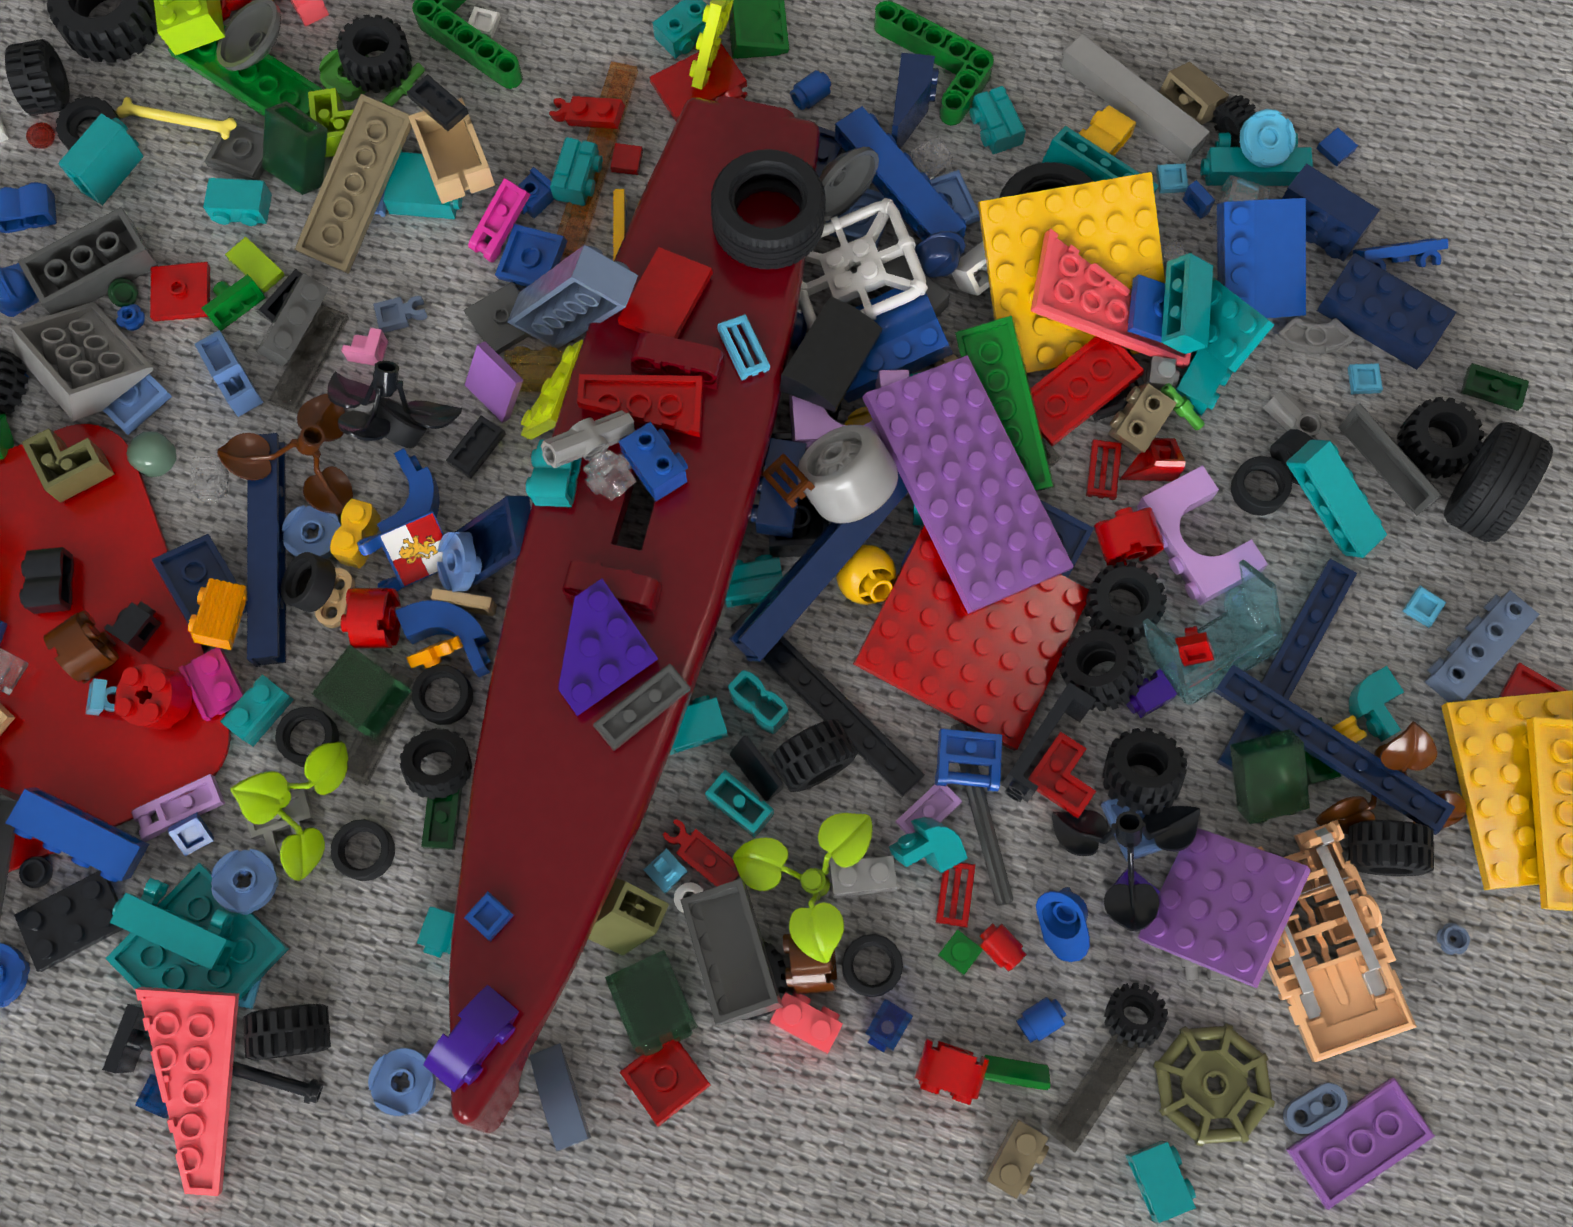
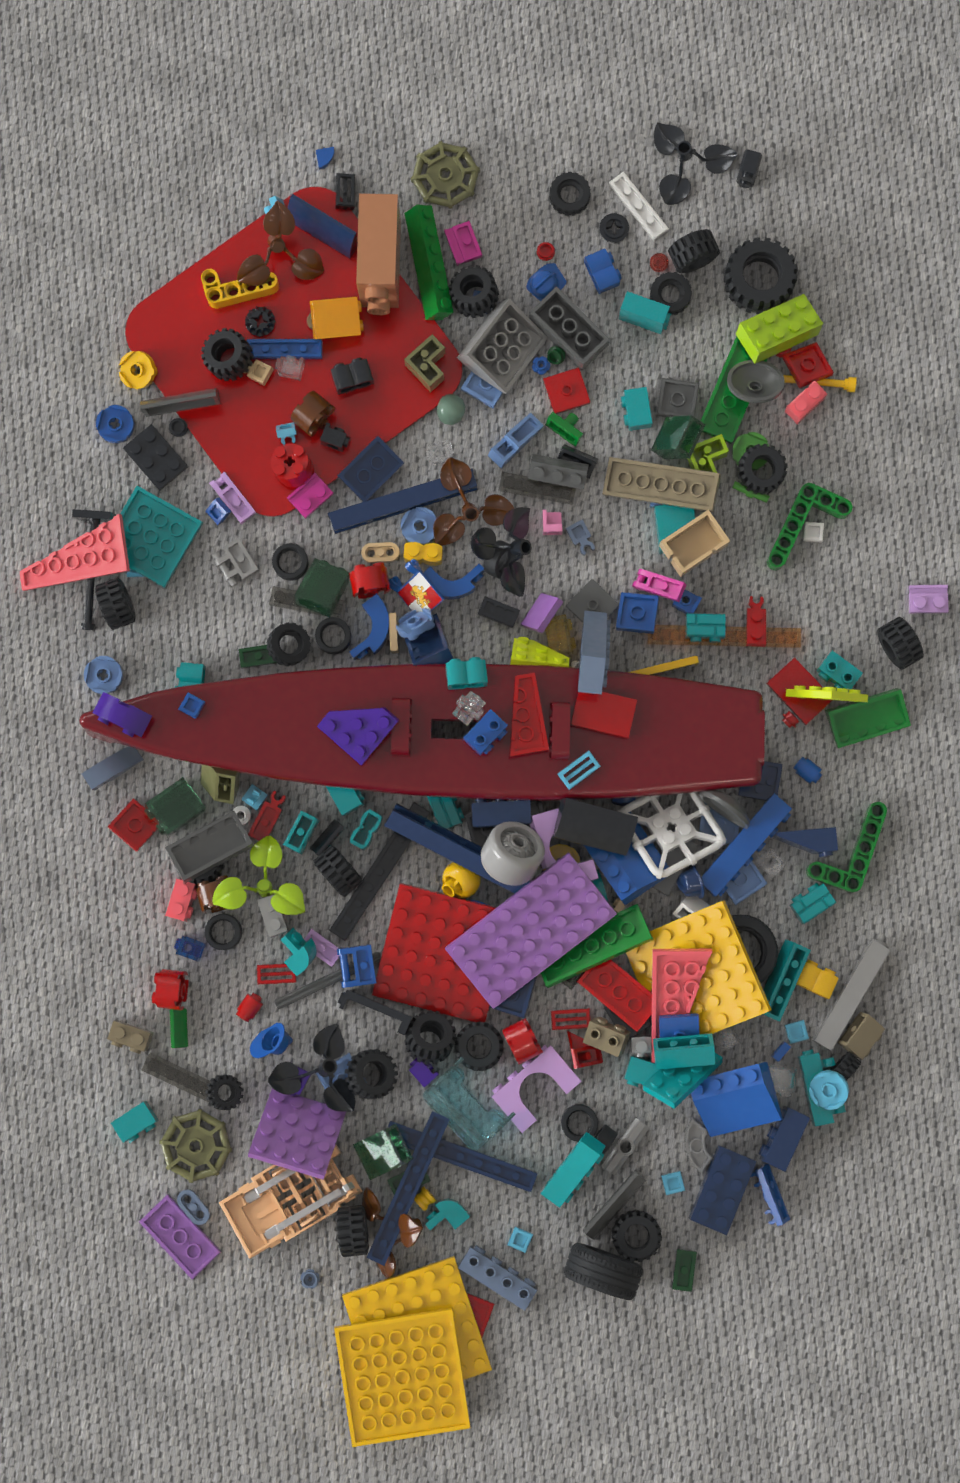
camera: 80 degrees right, 10 degrees up
(76, 834) = (202, 447): blue brick -> none
(129, 109) = (692, 313): light yellow piece -> none
(151, 1099) = (67, 536): clear blue tile -> none
(173, 932) = (158, 521): teal brick -> none
(218, 614) = (351, 488): light orange brick -> none
(244, 899) = (200, 562): medium blue plate -> none
(255, 263) = (596, 433): lime tile -> none
(257, 710) = (299, 527): teal brick -> none
(268, 792) = (244, 555): lime plant -> none
(319, 586) = (384, 525): black tyre -> none
(340, 841) = (224, 601): black tyre -> none
(431, 654) = (356, 623): light orange plate -> none
(437, 102) = (719, 527): black plate -> none
(587, 438) = (487, 690): light grey piece -> none
(626, 159) = (728, 657): red tile -> none
(641, 707) = (331, 762): dark grey tile -> none
(771, 172) = (700, 751): black tyre -> none
(797, 490) = (489, 825): reddish brown tile -> none
(960, 952) = (242, 983): green plate -> none
(1041, 1019) = (211, 1037): blue brick -> none
(1055, 778) = (358, 1020): red plate -> none
(1184, 407) = (622, 1062): bright green bar -> none
(1194, 647) = (457, 1093): red tile -> none
(1337, 146) = (846, 1142): blue tile -> none

